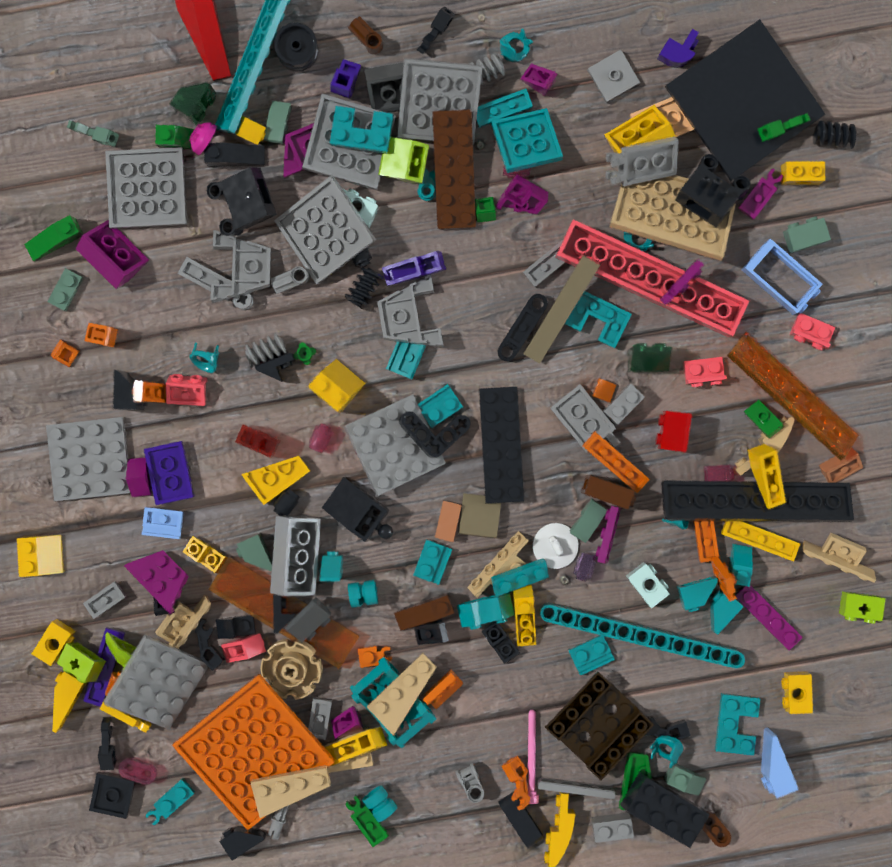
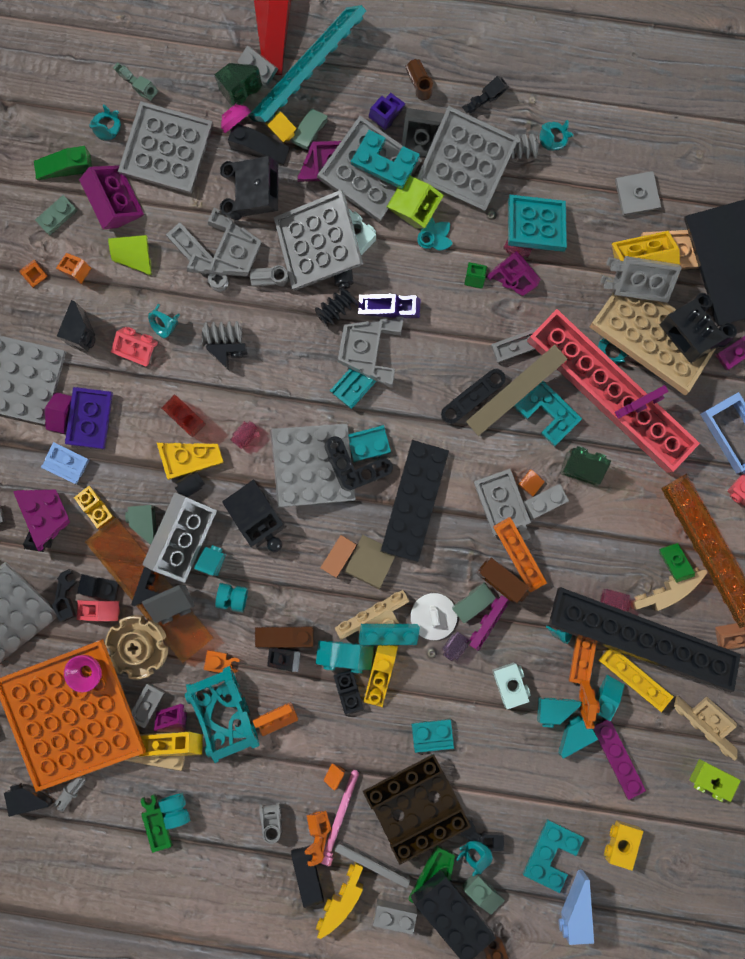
camera: 25 degrees right, 5 degrees down
(80, 193) = (101, 130): none -> teal piece
(149, 392) = (97, 333): orange plate -> none
(151, 301) = (131, 252): none -> lime slope
(173, 136) = (207, 108): green slope -> none
(179, 624) = (47, 564): tan bracket -> none
(201, 73) = (266, 68): none -> light grey plate
(249, 718) = (74, 676): none -> dark pink piece
(287, 788) = (88, 763): tan wing -> none
(304, 39) = (351, 66): black wheel -> none
(305, 358) = (258, 344): green plate -> none
(336, 385) = (277, 389): yellow slope -> none
(397, 698) = (230, 710): tan wing -> none
(432, 562) = (309, 590): teal plate -> none
(454, 169) = (459, 226): reddish brown plate -> none
(503, 107) = (525, 186): teal plate -> none
(514, 722) = (334, 776): none -> orange slope
(539, 78) = (568, 172): magenta slope -> none
(648, 641) = (494, 741): teal beam -> none
(673, 431) = (586, 544): red slope -> none
(679, 55) = (706, 194): dark purple brick -> none
(704, 371) = (633, 497): coral bracket -> none
(767, 473) = (664, 616): yellow slope -> none

